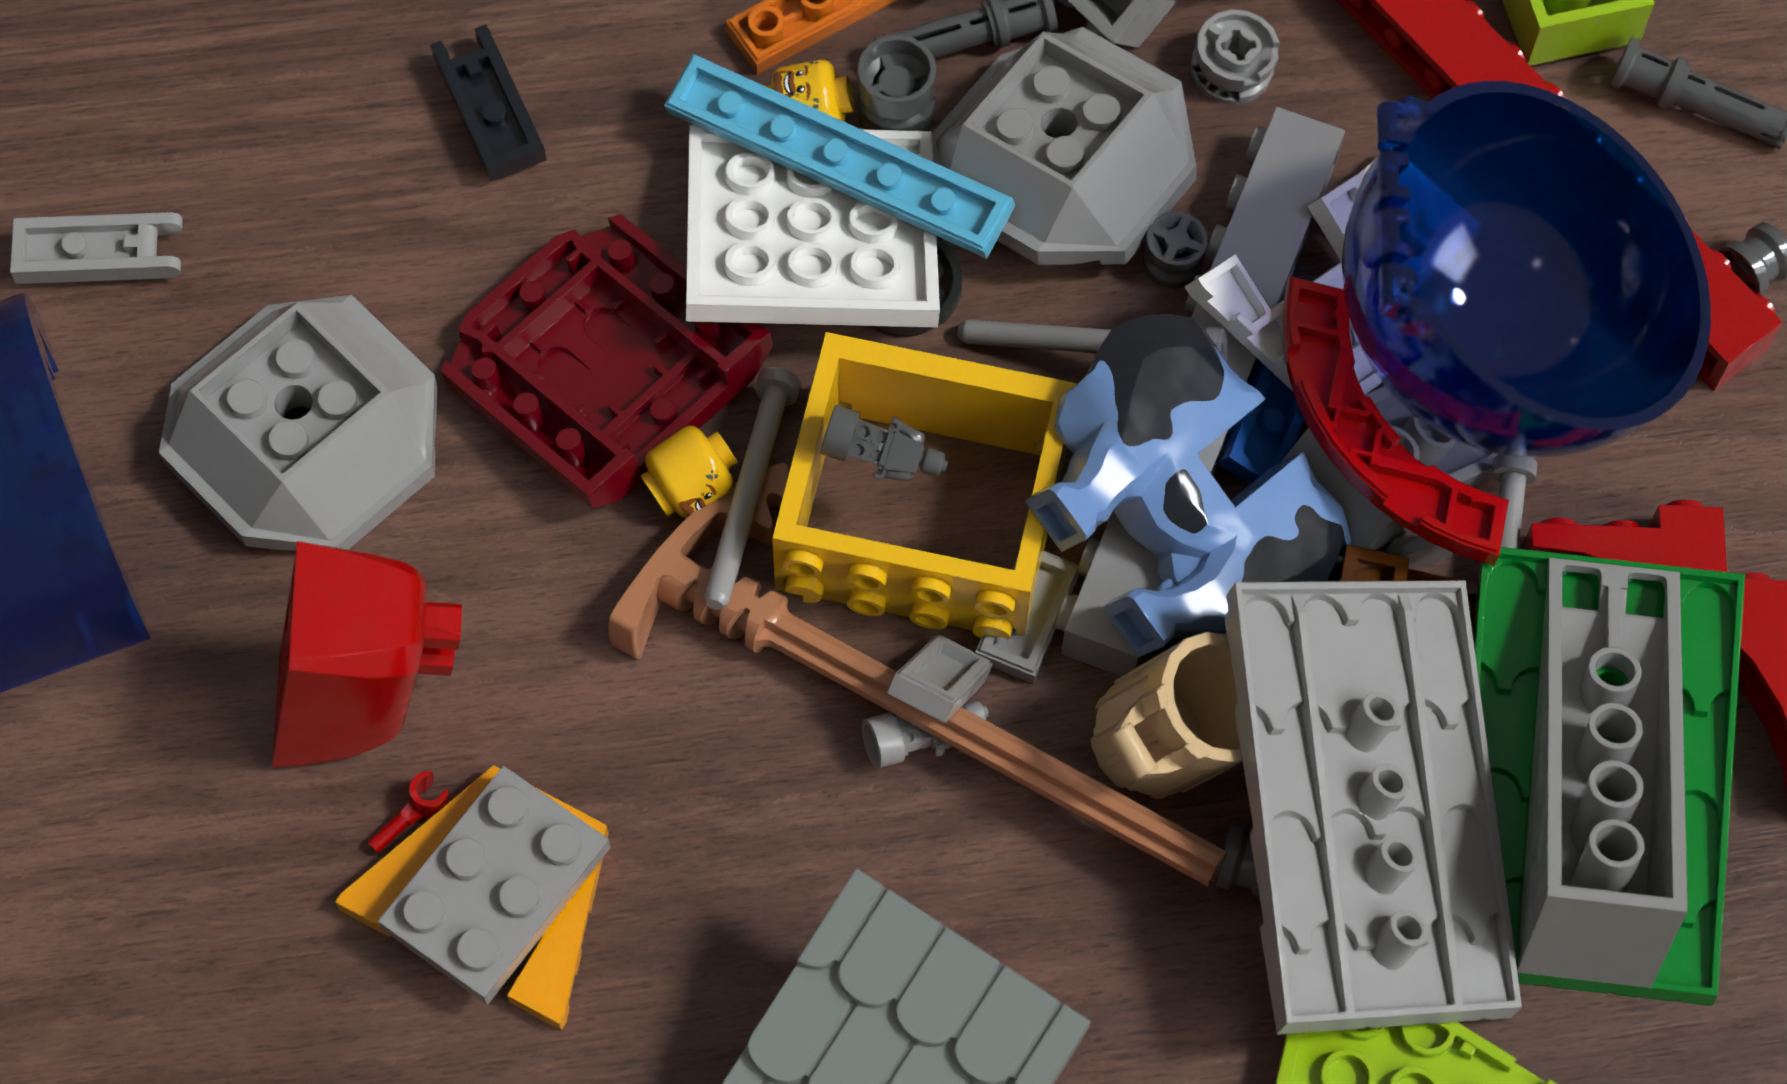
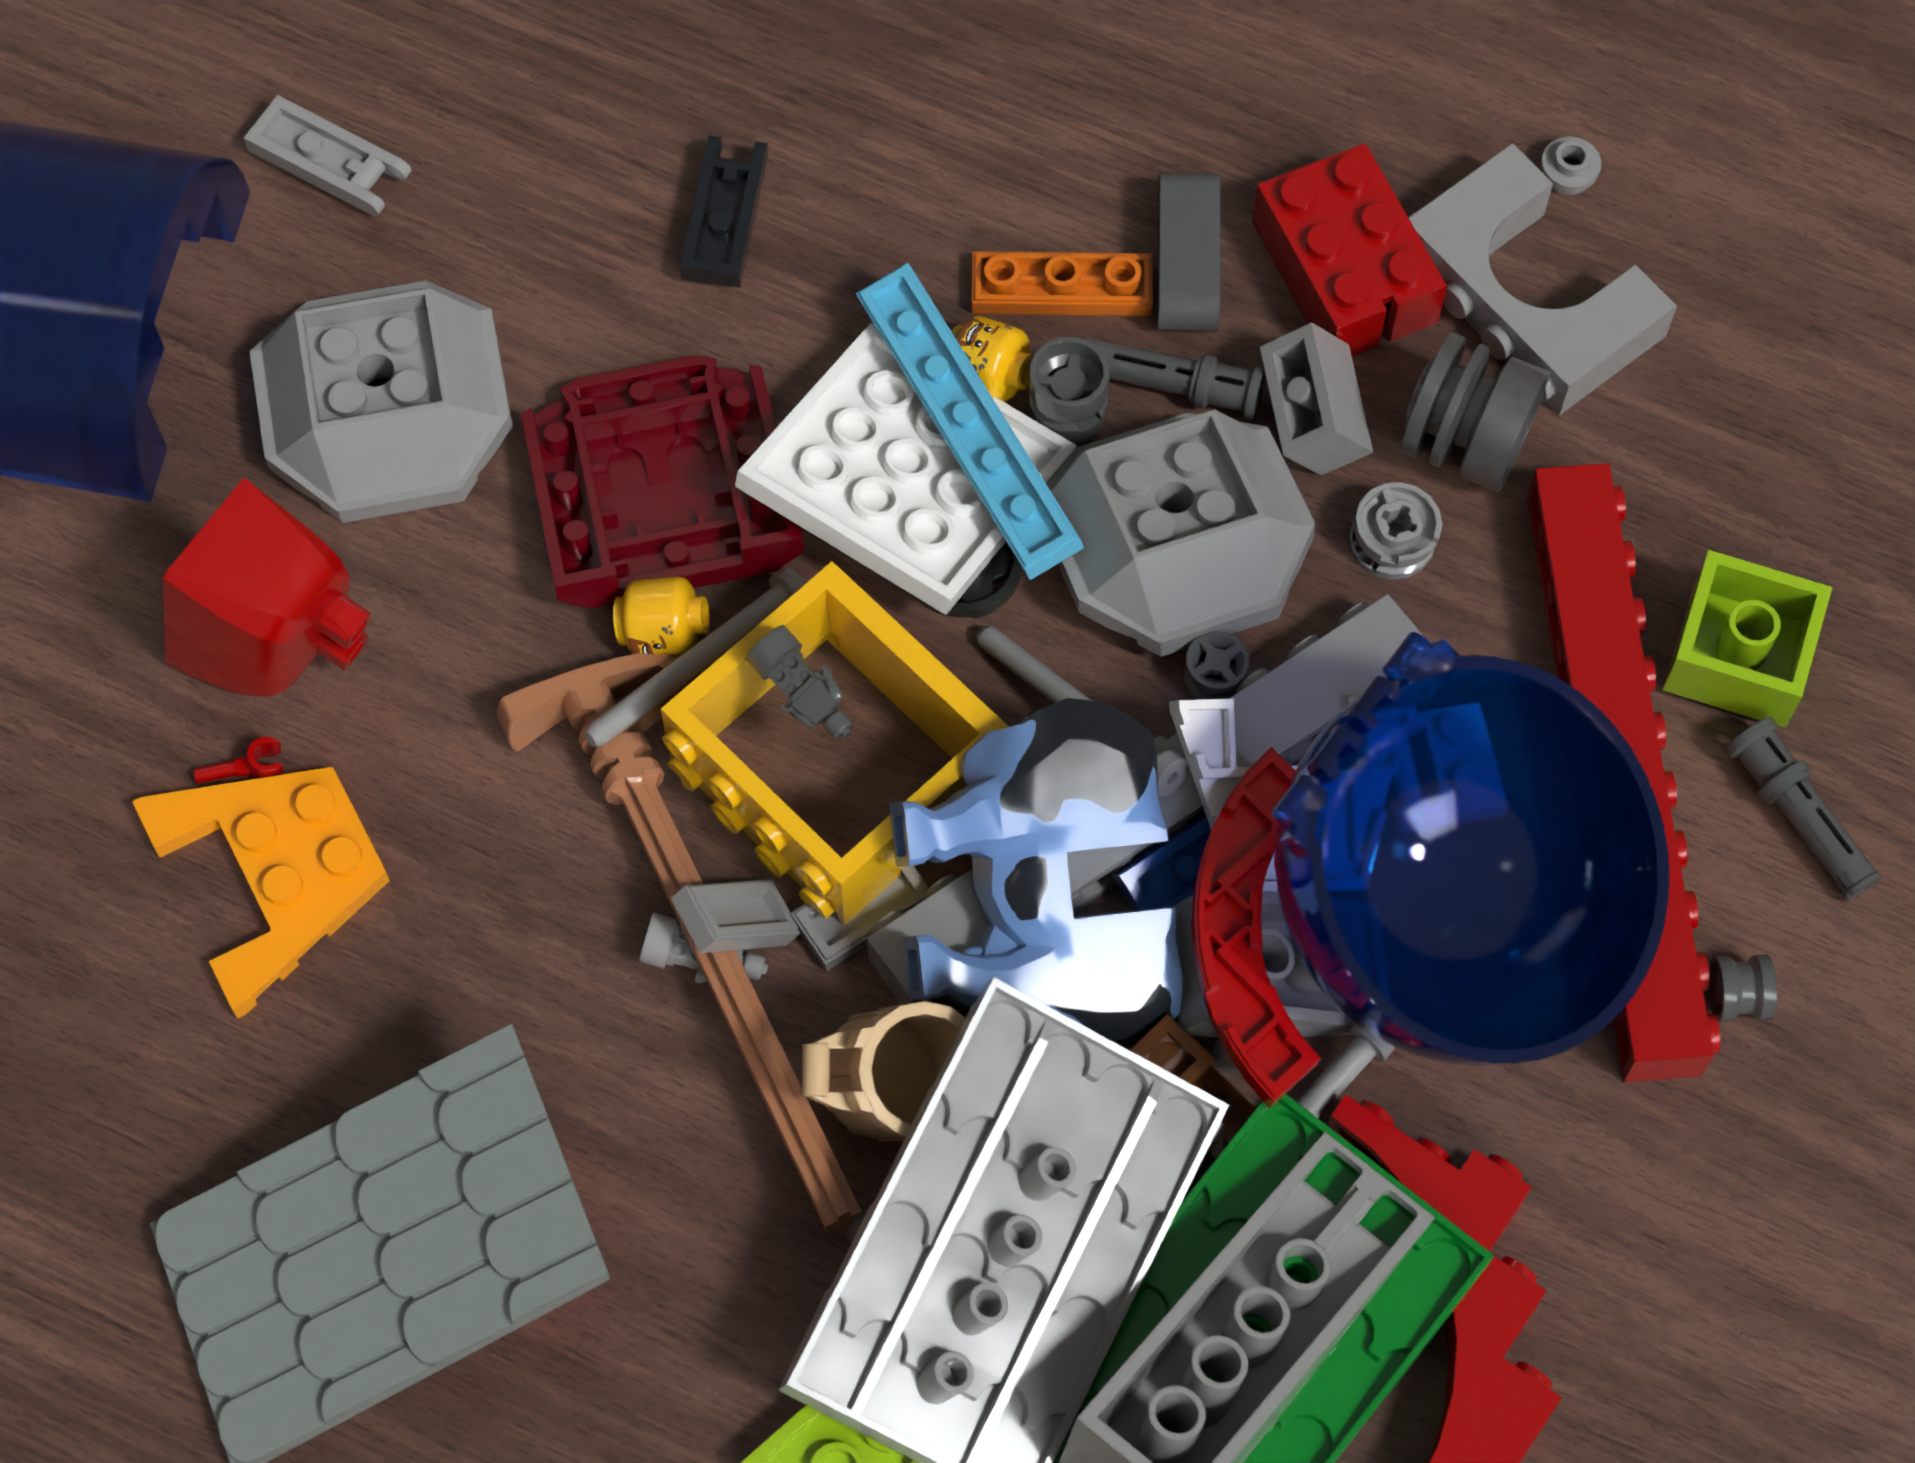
camera: 35 degrees right, 0 degrees up
(494, 884) = (256, 863): light grey plate -> none

